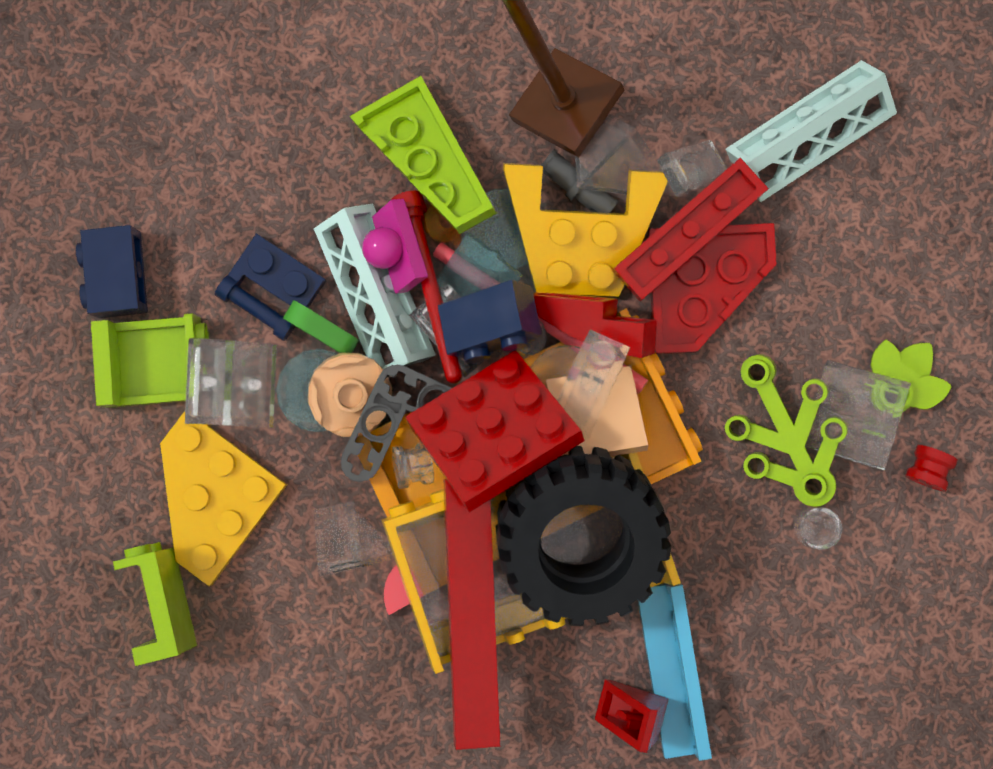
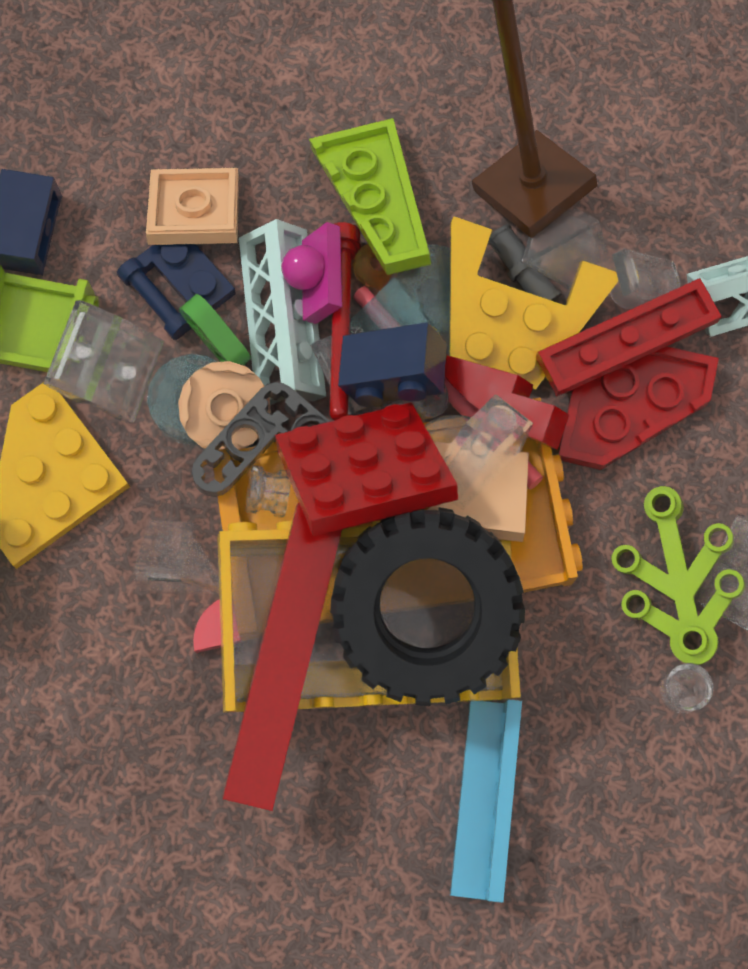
camera: 10 degrees right, 10 degrees down
(264, 212) = (193, 206): none -> light nougat tile
(631, 714) = (428, 832): red slope -> none

